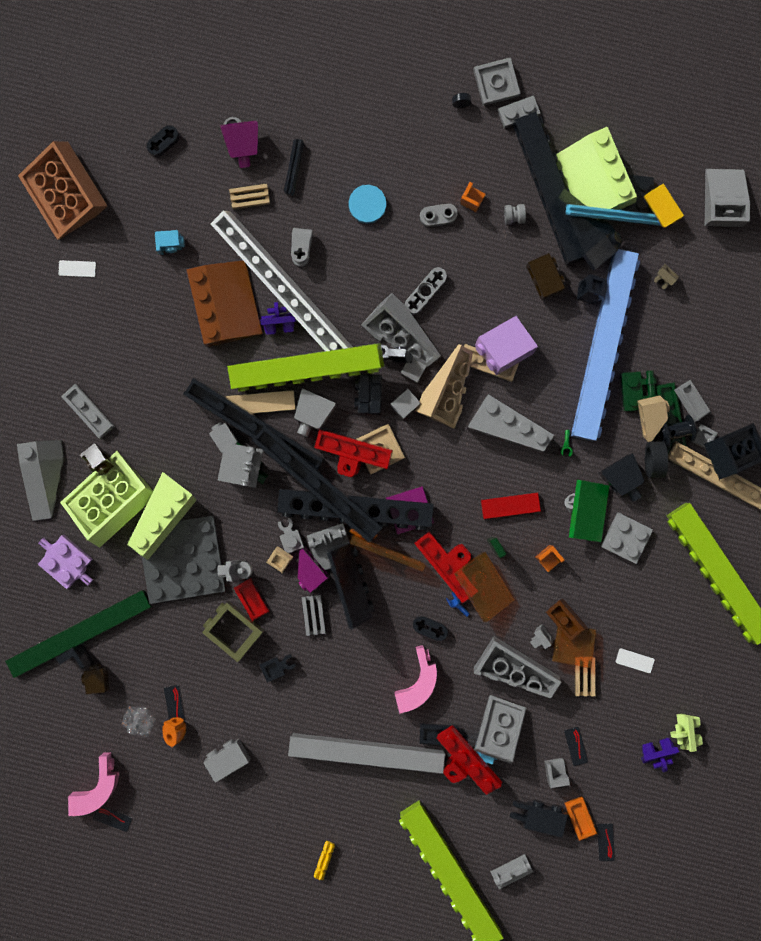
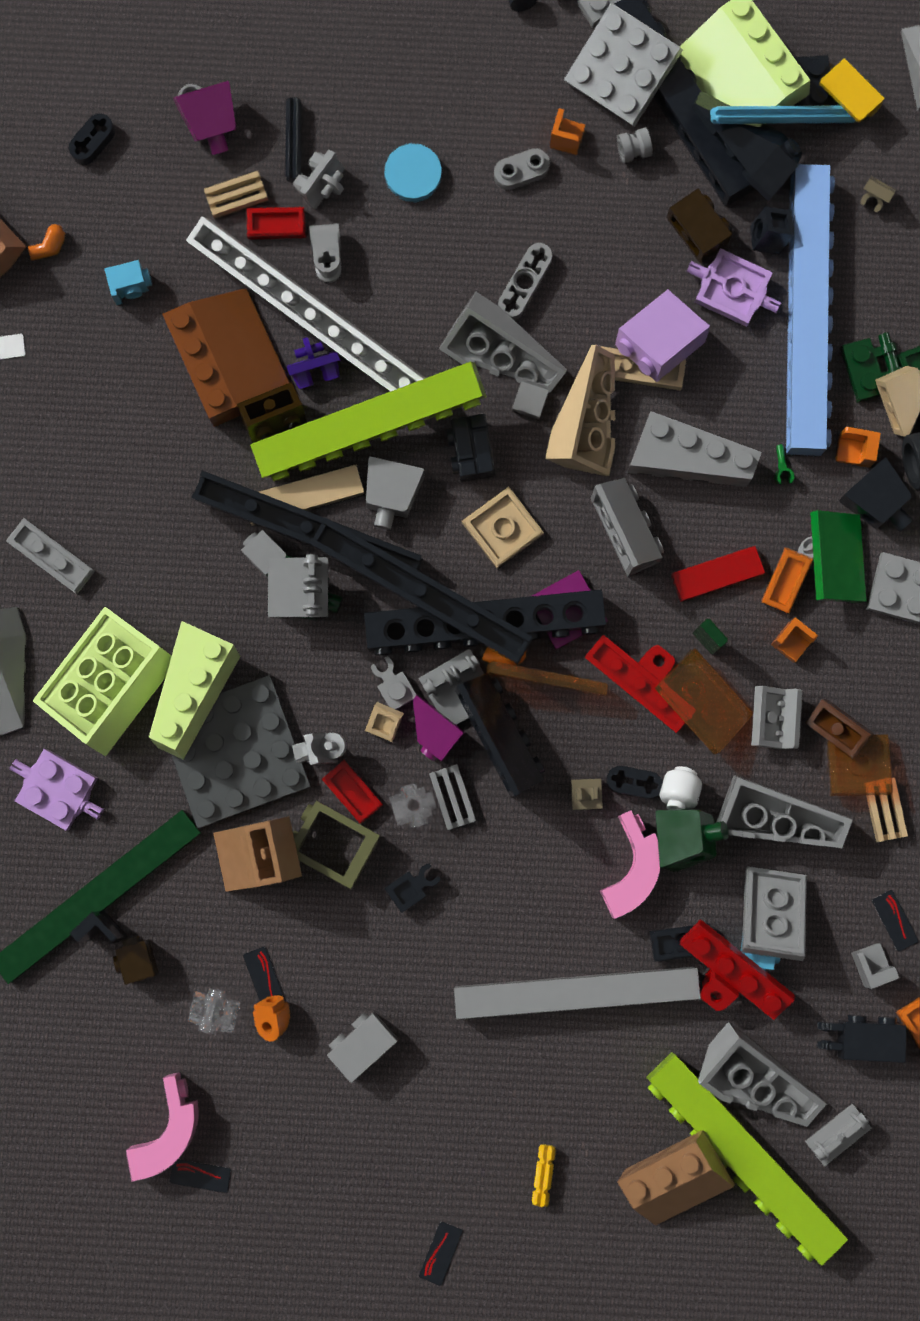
camera: 10 degrees left, 5 degrees down
(97, 459) = (77, 623): brick -> none
(124, 206) = (51, 244): none -> orange arm
(183, 630) = (257, 854): none -> medium nougat slope
(245, 348) = (272, 412): none -> dark brown brick
(251, 894) = (440, 1253): none -> black sticker
(272, 220) = (276, 223): none -> red tile
(280, 620) = (401, 802): none -> clear brick
(307, 198) = (323, 179): none -> light grey hips
(352, 452) = (464, 537): red plate -> none
(398, 629) = (586, 794): none -> dark tan tile
(399, 354) = (503, 381): black plate -> none
(404, 879) = (675, 1179): none -> medium nougat slope
(405, 404) = (528, 452): light grey panel -> none
(455, 672) = (687, 837): none -> dark green torso
(456, 603) = (666, 736): blue hand -> none
(458, 464) = (626, 525): none -> light grey slope
(458, 639) = (681, 789): none -> white head
(462, 823) = (747, 1075): none -> light grey wedge
(517, 159) = (623, 64): none -> light grey plate
(528, 605) = (776, 717): none -> light grey bracket
(541, 637) = (807, 762): light grey tile -> none
(553, 519) = (787, 580): none -> orange tile
(559, 321) = (733, 287): none -> lavender plate
(617, 441) = (858, 447): none -> orange panel

